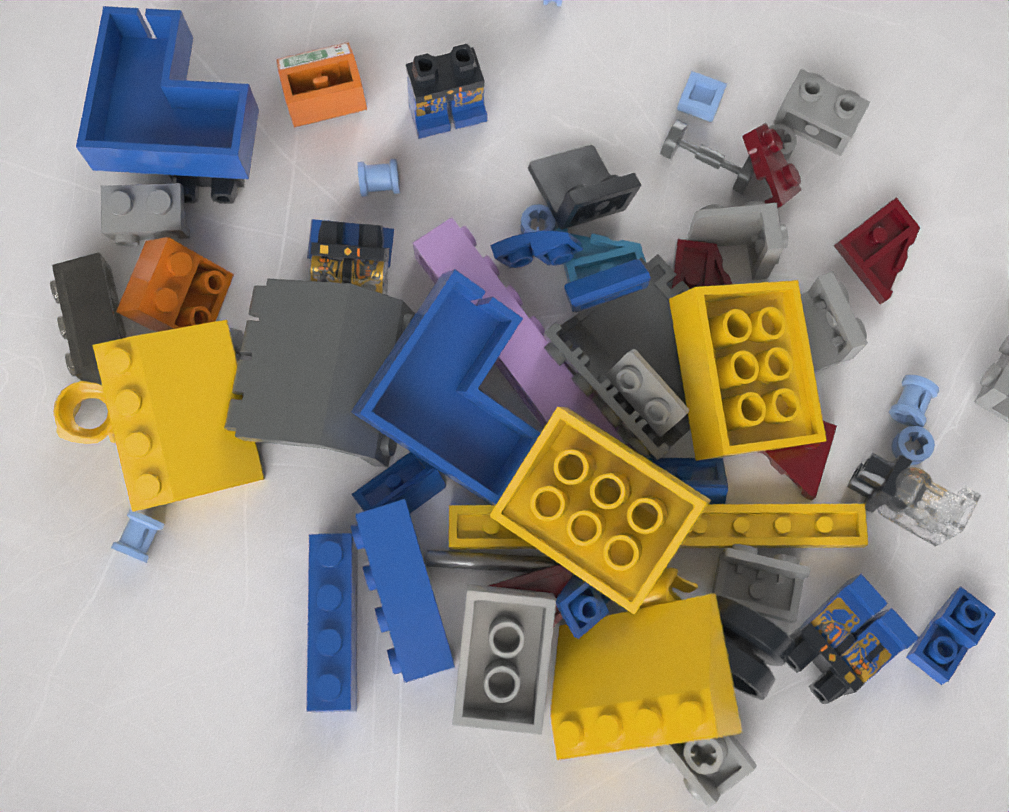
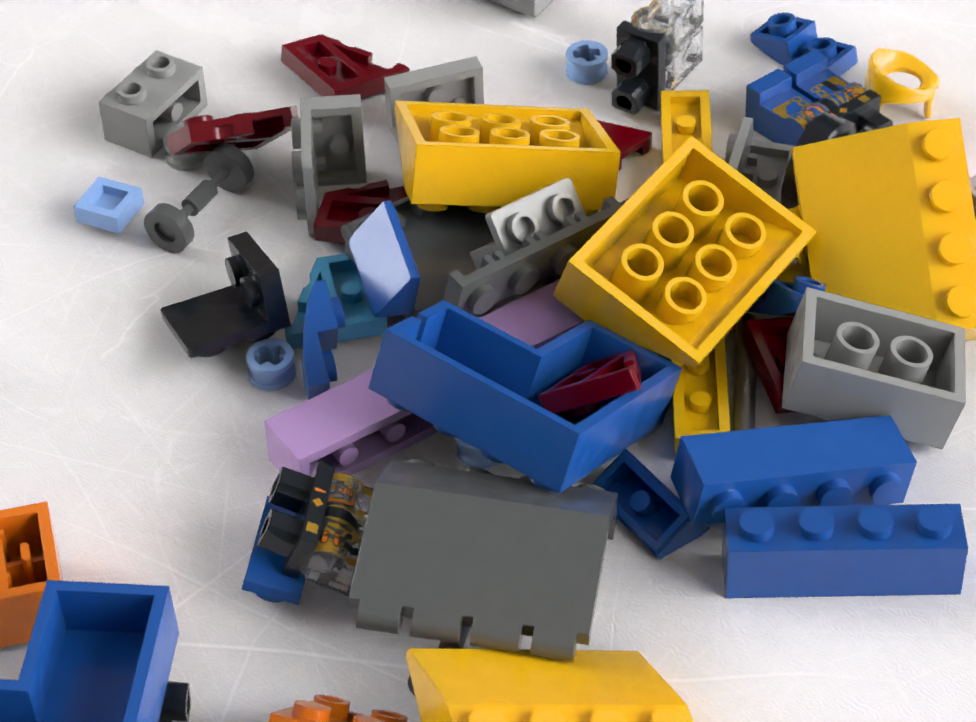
camera: 85 degrees left, 30 degrees down
(378, 177) = (178, 529): light blue bush -> none
(441, 81) = (67, 423): hips -> none
(472, 442) = (593, 382): none -> dark red wing
(866, 703) = (889, 61): none -> yellow piece
(914, 400) = (535, 53): light blue bush -> none

